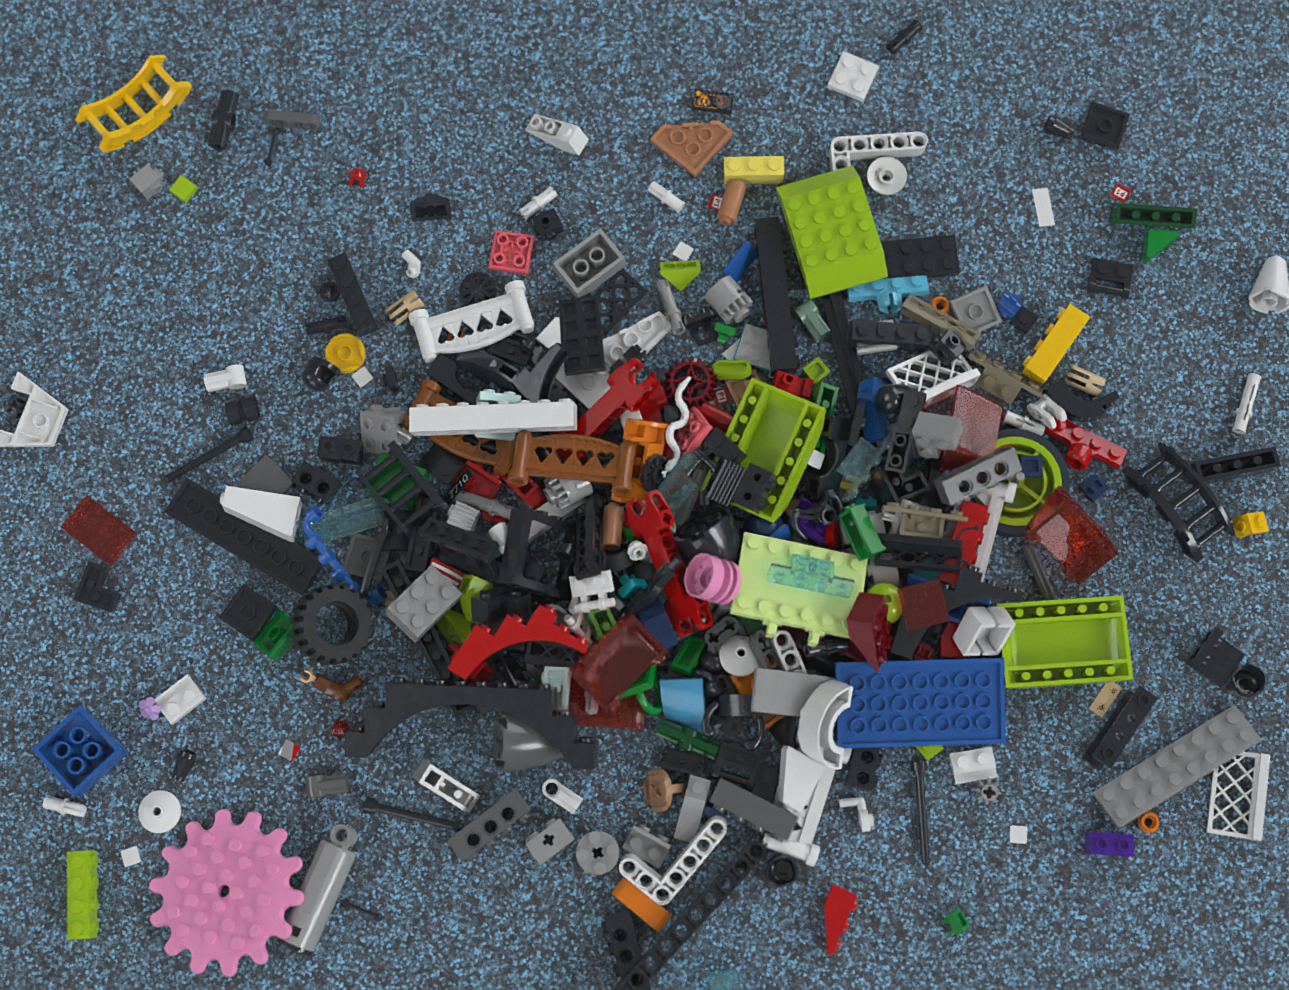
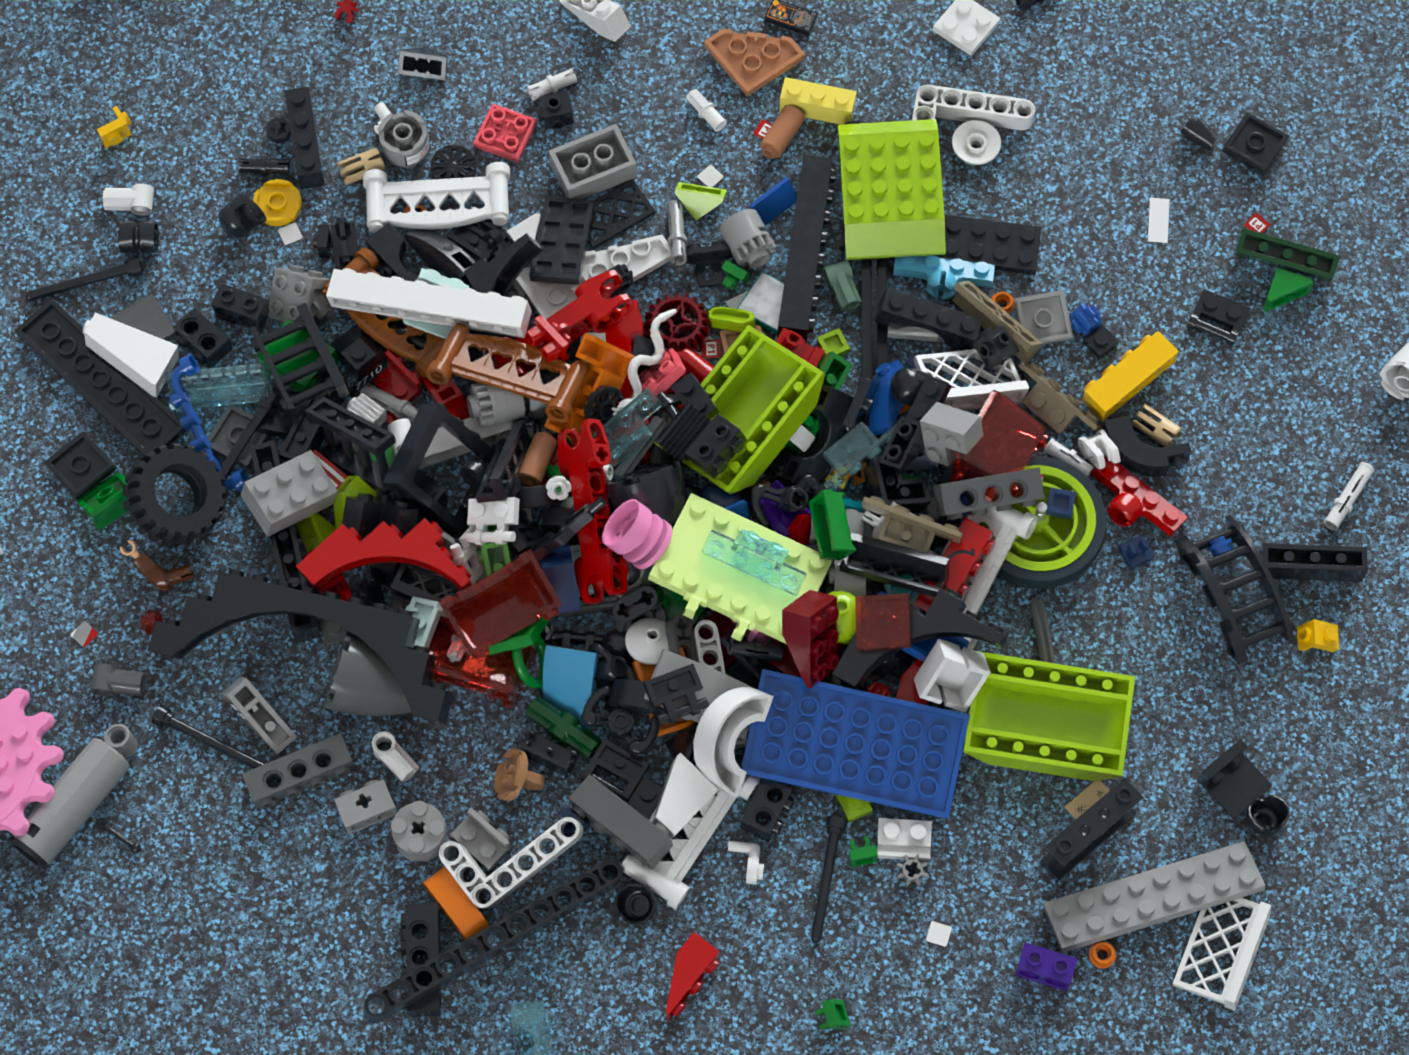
camera: 10 degrees right, 10 degrees down
(200, 323) = (115, 131): none -> yellow bracket
(408, 376) = (344, 242): none -> black hinge
(428, 268) = (404, 139): none -> light grey brick
(601, 425) = (553, 336): none -> red hips
(630, 585) = (539, 527): teal tile -> none
(689, 655) = (590, 630): green tile -> none
(692, 808) = (548, 803): light grey slope -> none
(774, 697) = (673, 686): none -> black plate
(945, 787) = (863, 855): none -> green tile
(1070, 536) = (1088, 593): clear red windscreen -> none
(1160, 471) = (1219, 545): none -> blue plate

